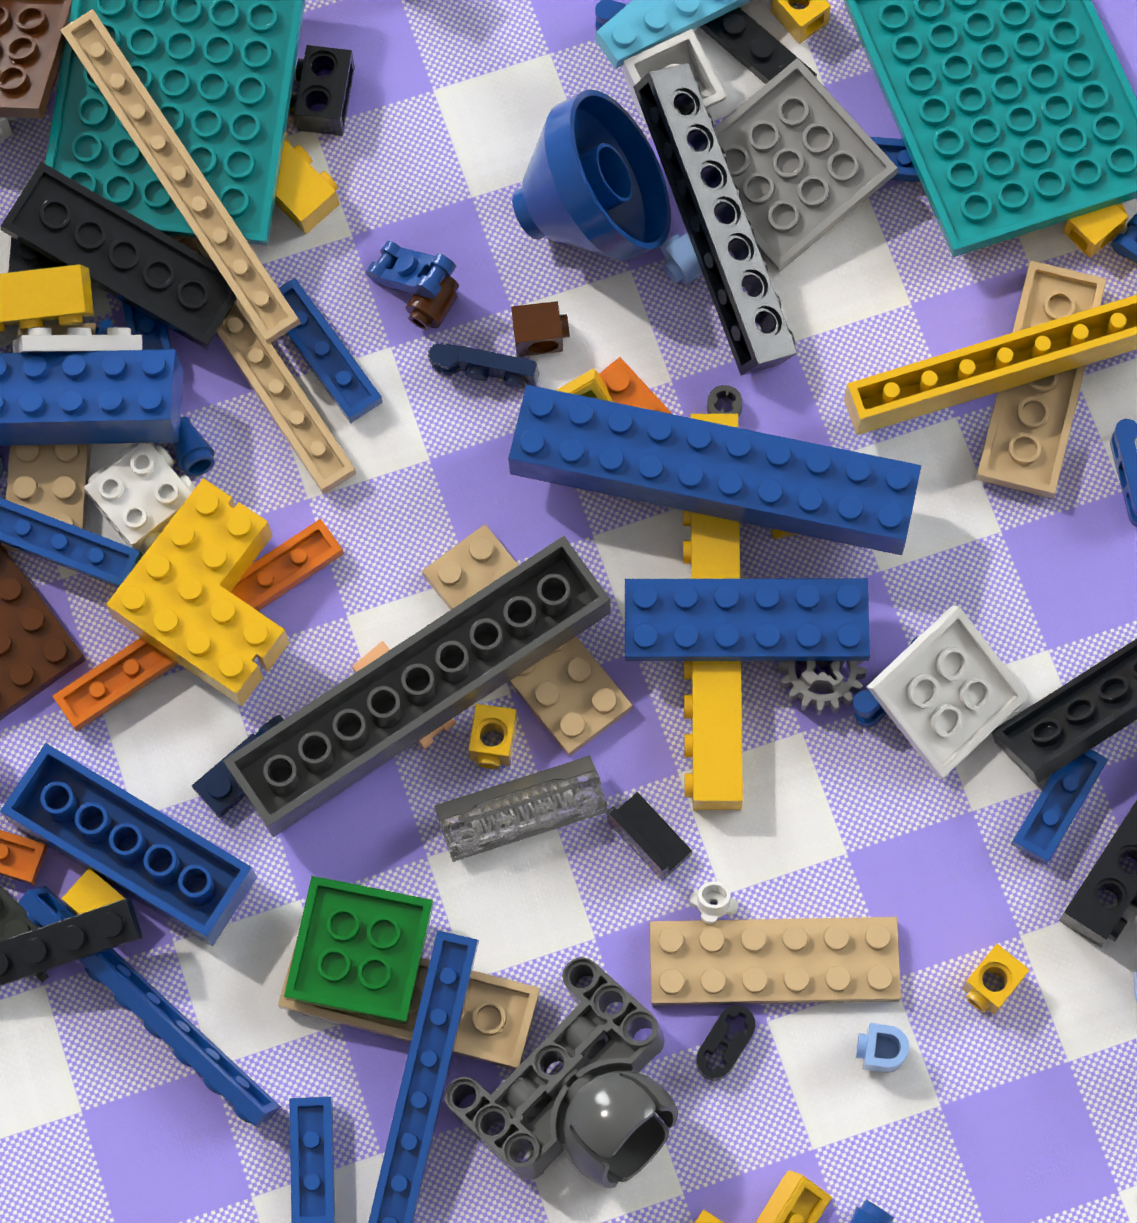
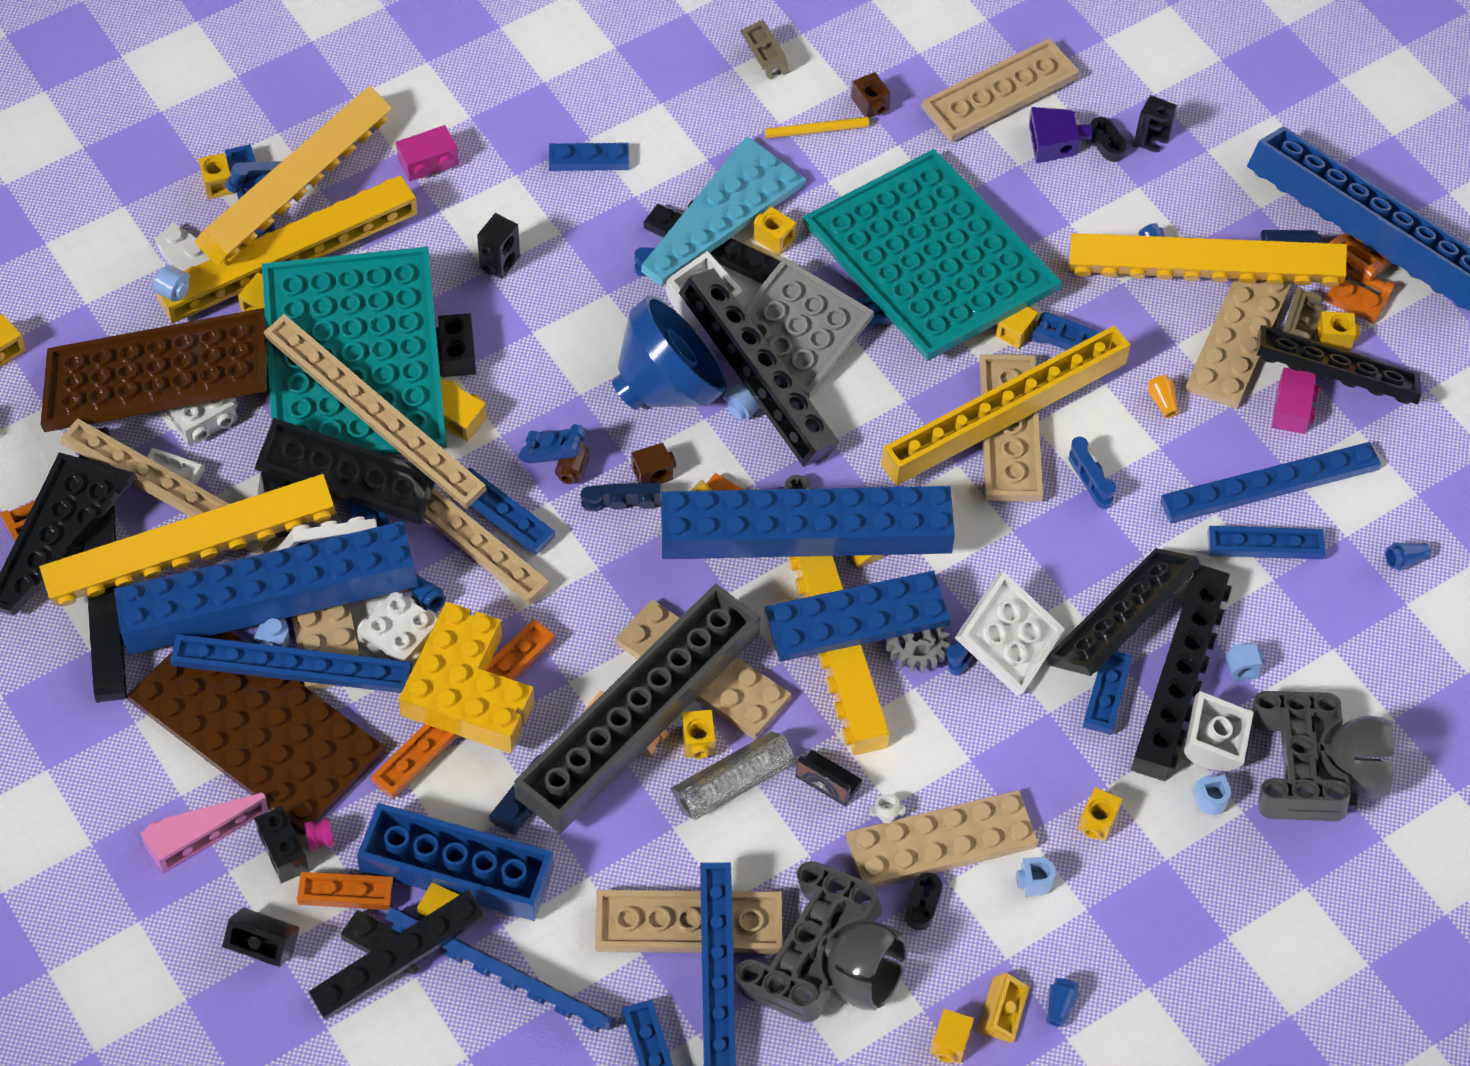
camera: 20 degrees left, 15 degrees down
(359, 949) = (645, 892): green plate -> none

